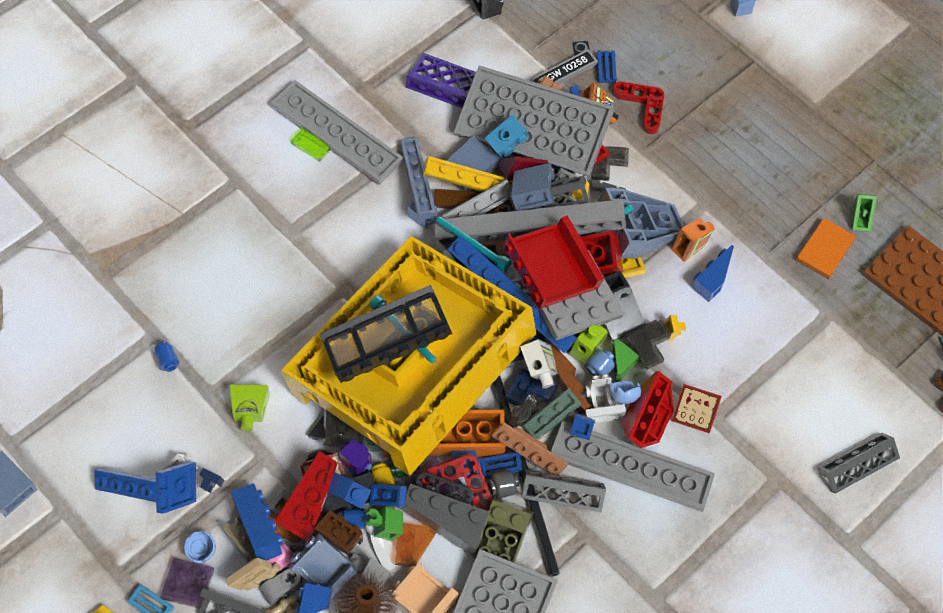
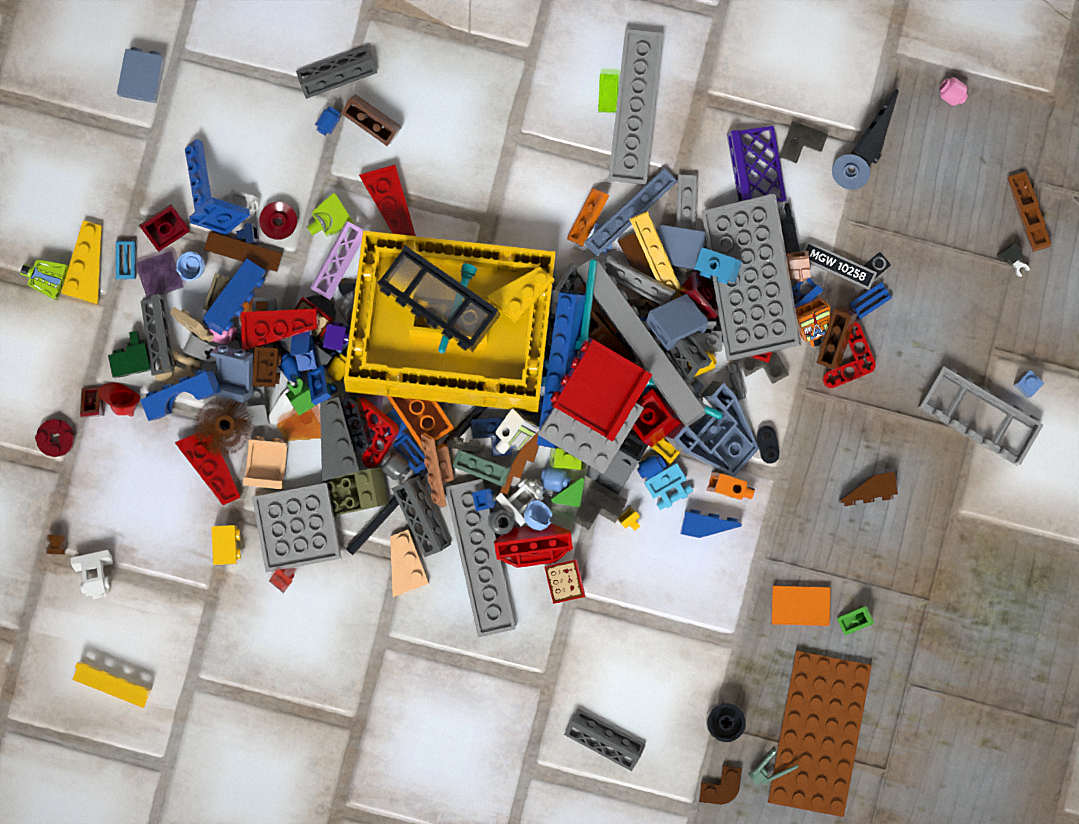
camera: 60 degrees right, 25 degrees up
(132, 327) = (337, 74): none -> dark grey fence
(148, 548) = (164, 227): none -> dark red slope
(193, 320) = (371, 120): none -> reddish brown brick
(218, 440) = (271, 213): none -> dark red dish
(220, 497) = (241, 251): none -> reddish brown tile
(264, 348) = (389, 198): none -> red wing
(290, 418) = (341, 261): none -> lavender fence
(398, 213) = (587, 217): none -> orange plate
(429, 271) = (521, 294): none -> yellow wing
(436, 140) = (686, 201): none -> light grey tile
(446, 42) = (800, 136): none -> clear smoke plate
(504, 18) = (847, 178): none -> sand blue dish
(599, 532) = (406, 564): none -> light nougat wing
(611, 425) = (504, 526): none -> dark grey head
(622, 95) = (836, 337): none -> reddish brown brick
(639, 285) = (651, 466): none -> blue brick
(657, 284) = (665, 481): none -> medium azure plate
(675, 196) = (768, 444): none -> black plate
(747, 44) = (981, 415): none -> clear window
(758, 143) = (876, 486): none -> reddish brown slope
(898, 354) = (731, 731): none -> black brick

